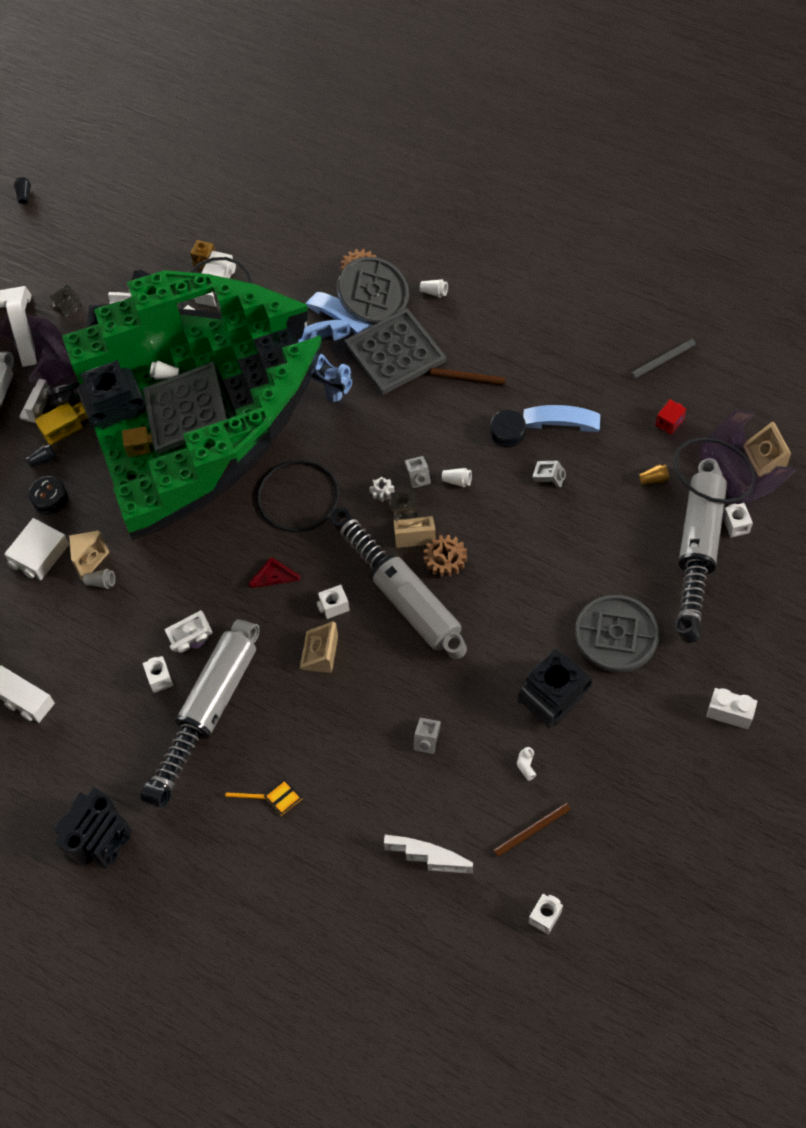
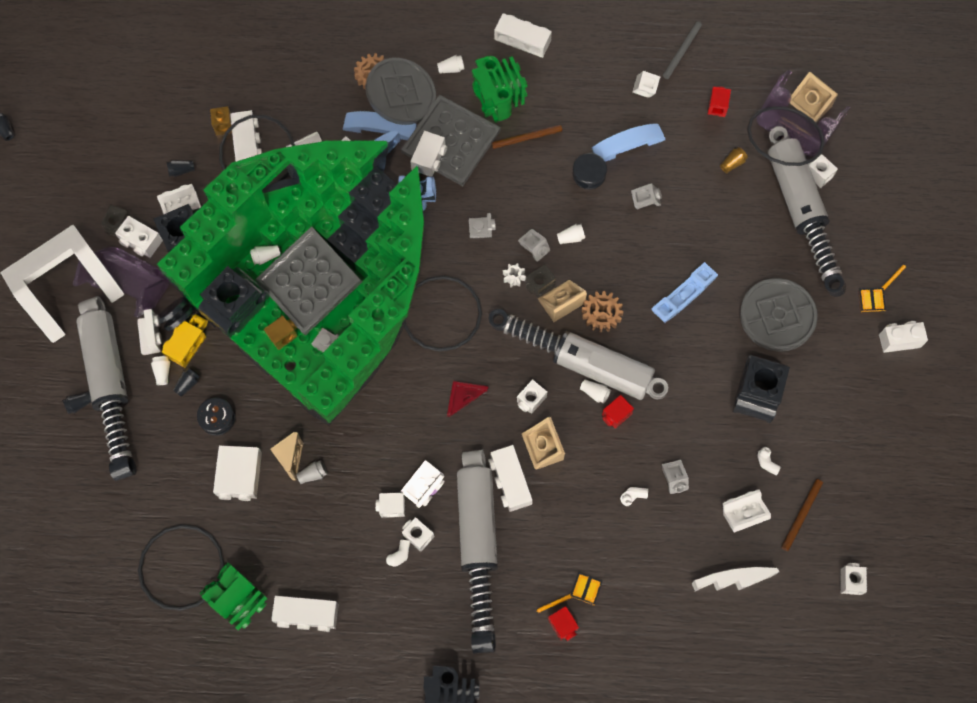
camera: 30 degrees left, 10 degrees up
(27, 436) = (161, 369): none -> white cone
(72, 316) = (138, 236): none -> white brick
(132, 686) = (399, 556): none -> white arm
(150, 637) = (391, 505): none -> white brick
(240, 816) = (563, 624): none -> red brick
(270, 664) = (510, 478): none -> white brick
(363, 350) = (428, 153): none -> white brick
(375, 732) = (633, 493): none -> white arm
(378, 436) = (481, 227): none -> light grey bracket
(398, 625) = (595, 390): none -> white cone
(405, 651) = (617, 412): none -> red brick
(462, 320) = (498, 86): none -> green piece
(475, 796) = (745, 511): none -> white bracket
(515, 287) = (523, 35): none -> white brick
(534, 576) = (685, 293): none -> light blue slope
(605, 372) = (646, 84): none -> white brick
(725, 662) = (873, 298): none -> piece

